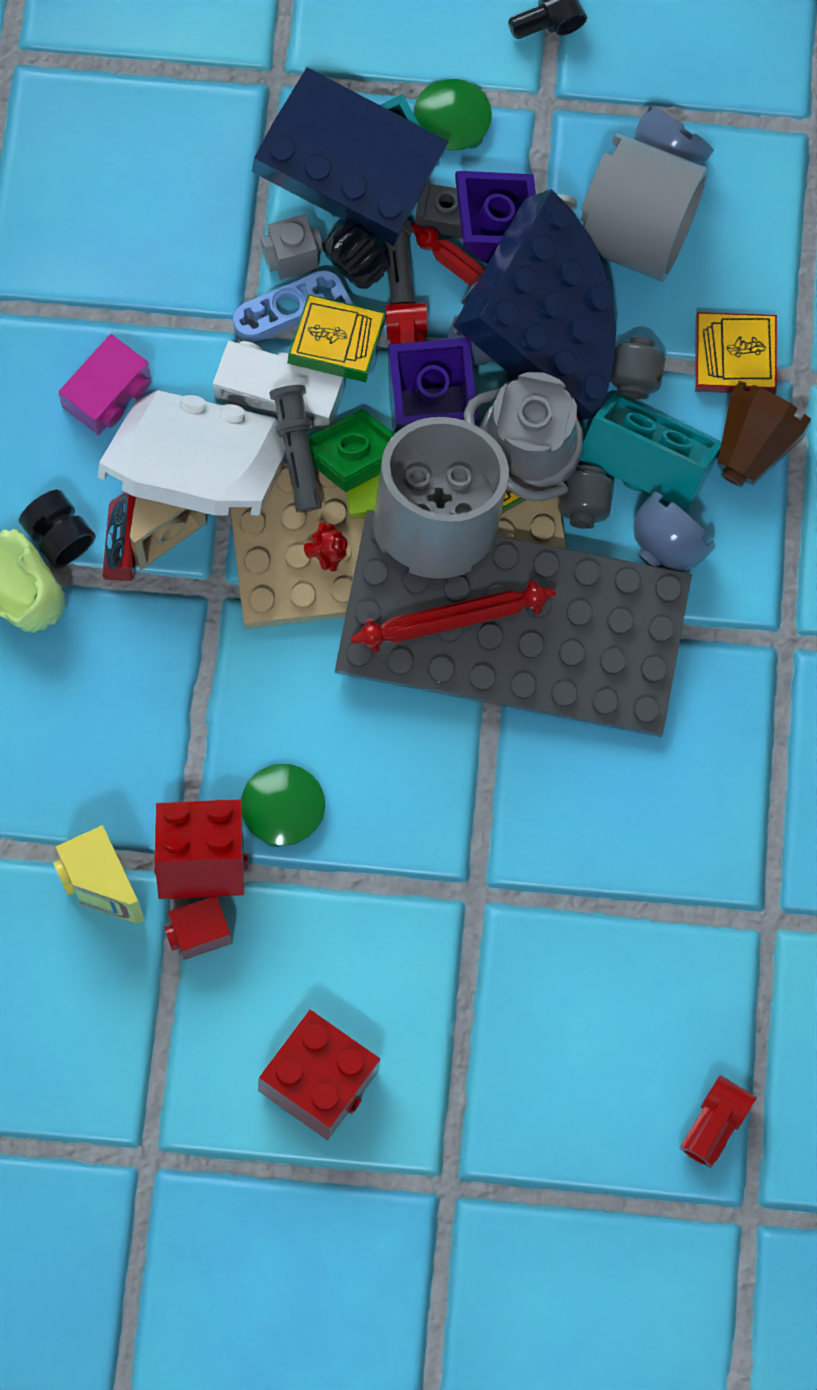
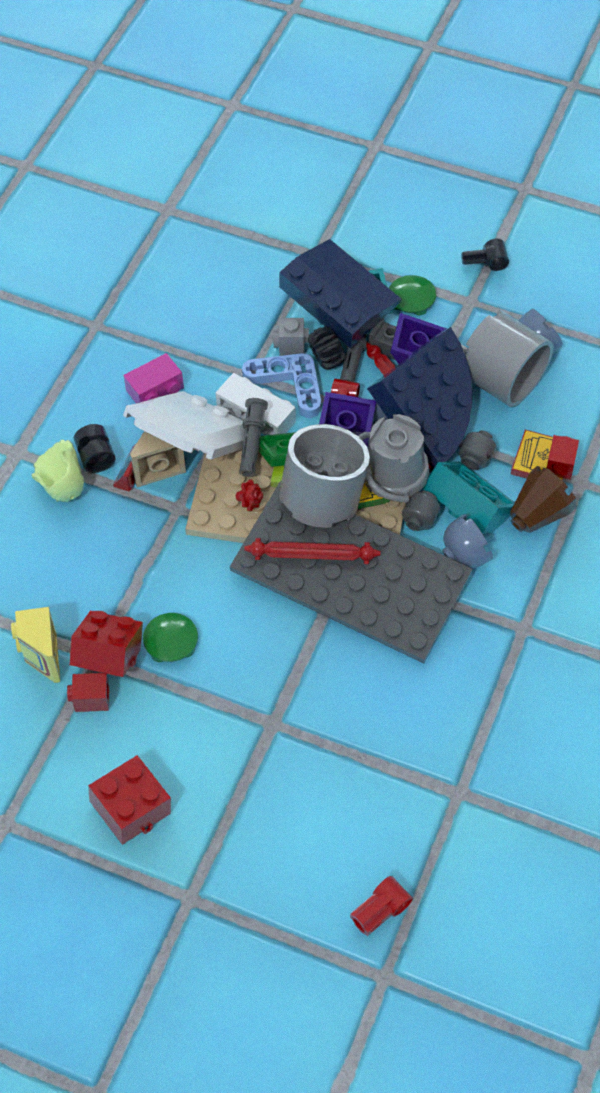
camera: 20 degrees right, 15 degrees down
(336, 338) = (298, 387): yellow tile -> none
(768, 349) = (562, 456): none -> red brick

